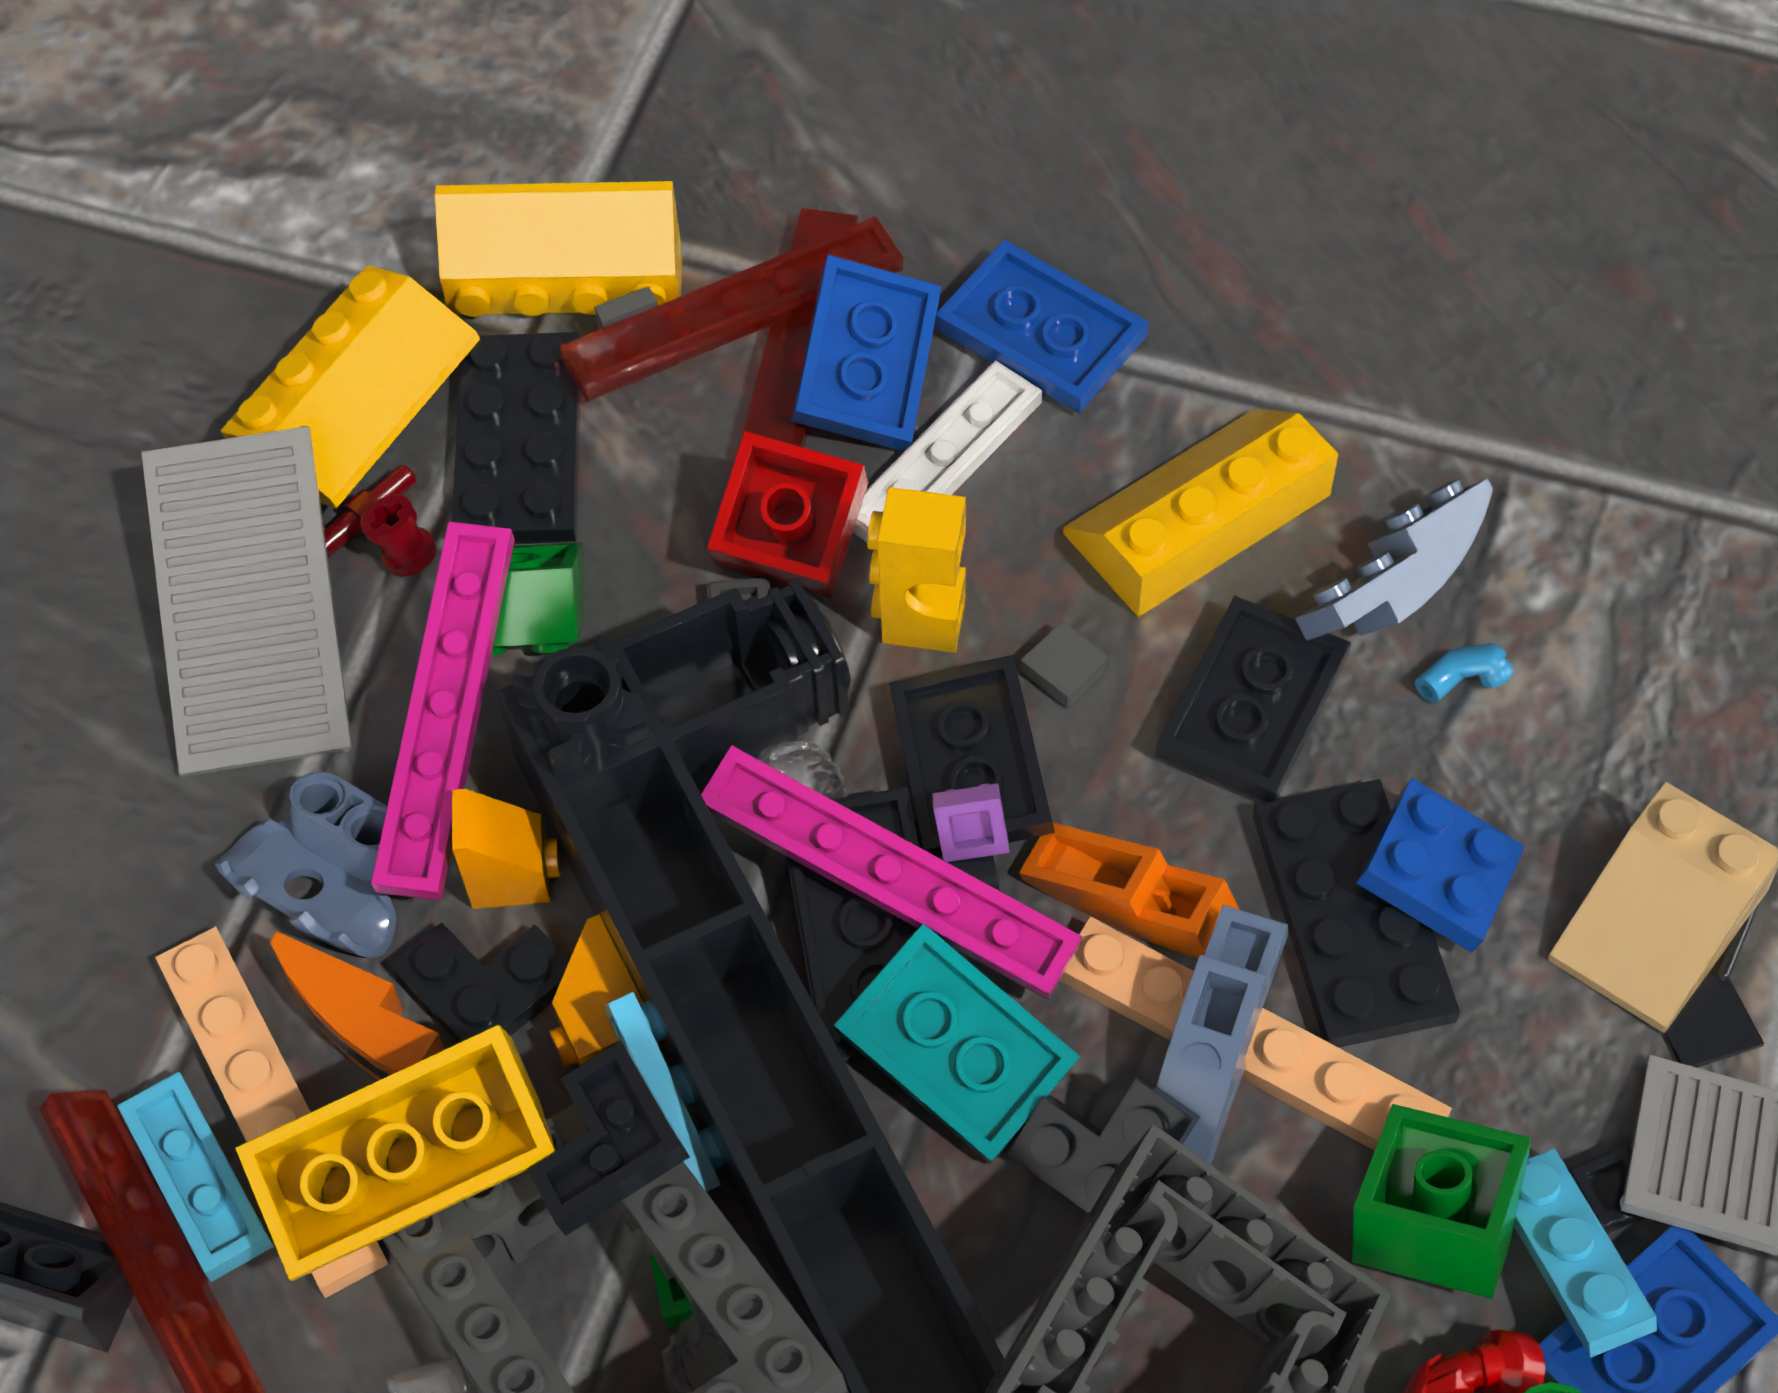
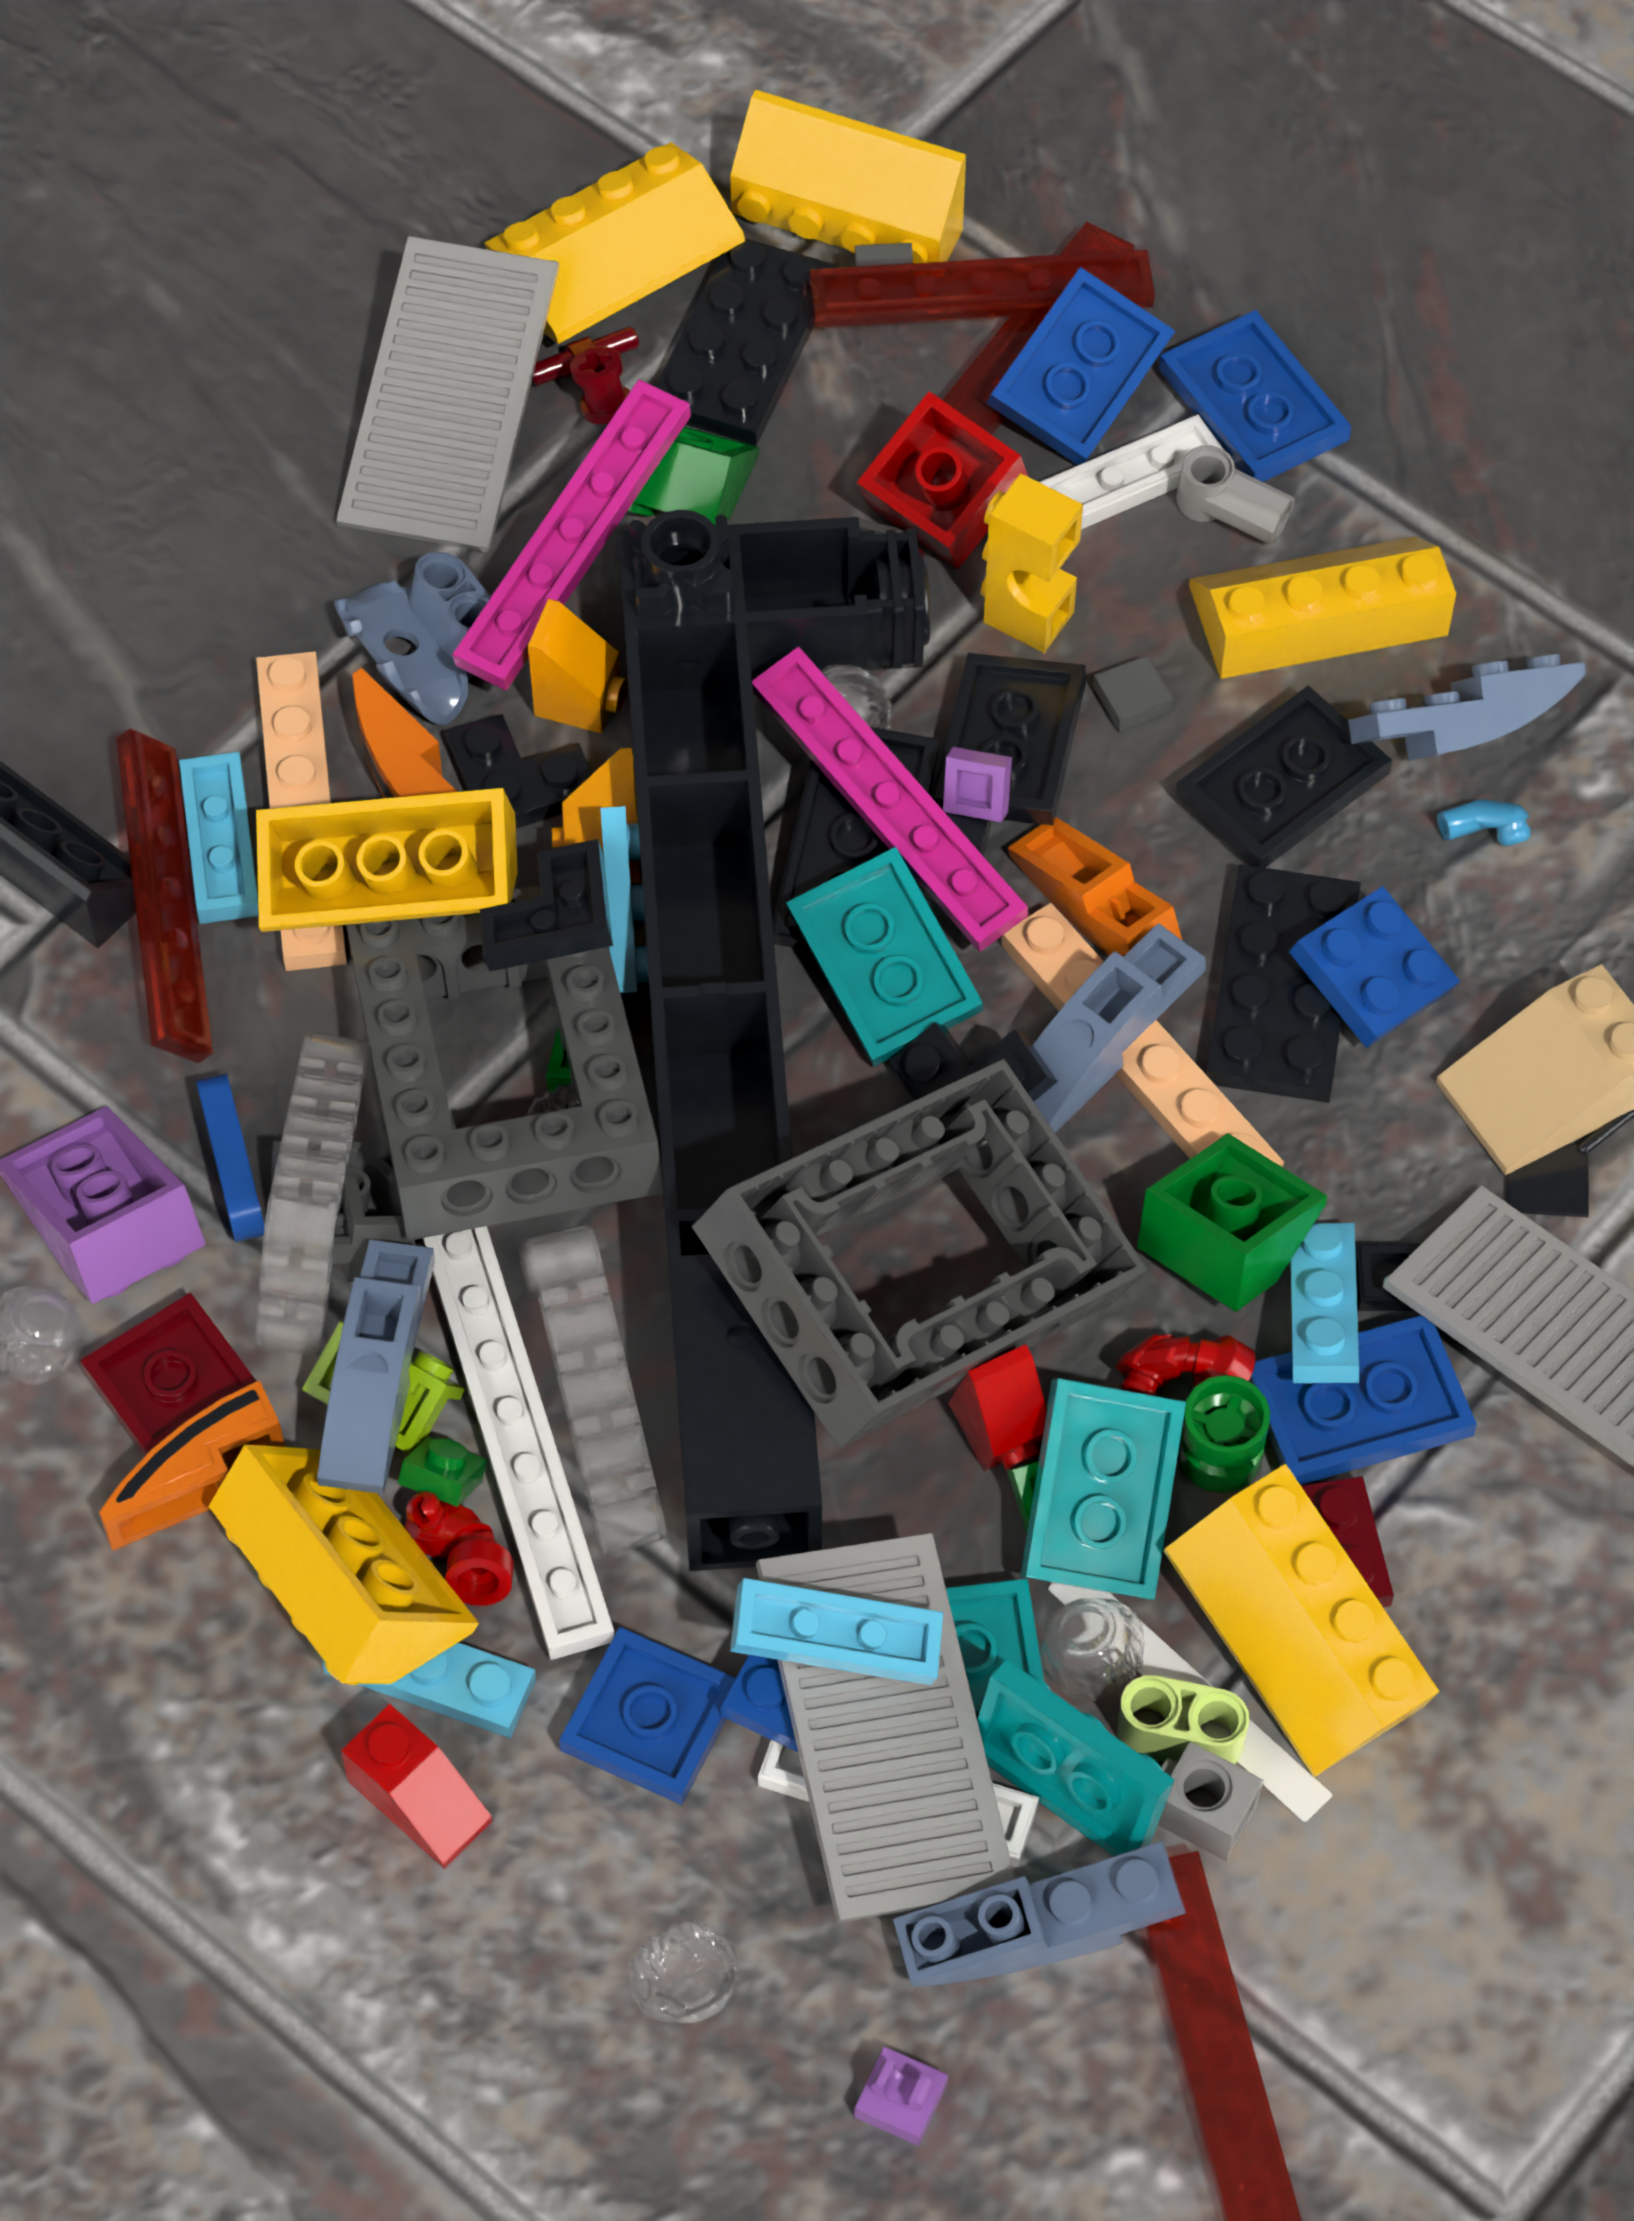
camera: 20 degrees right, 0 degrees up
(1068, 430) = (1216, 490): none -> light grey piece

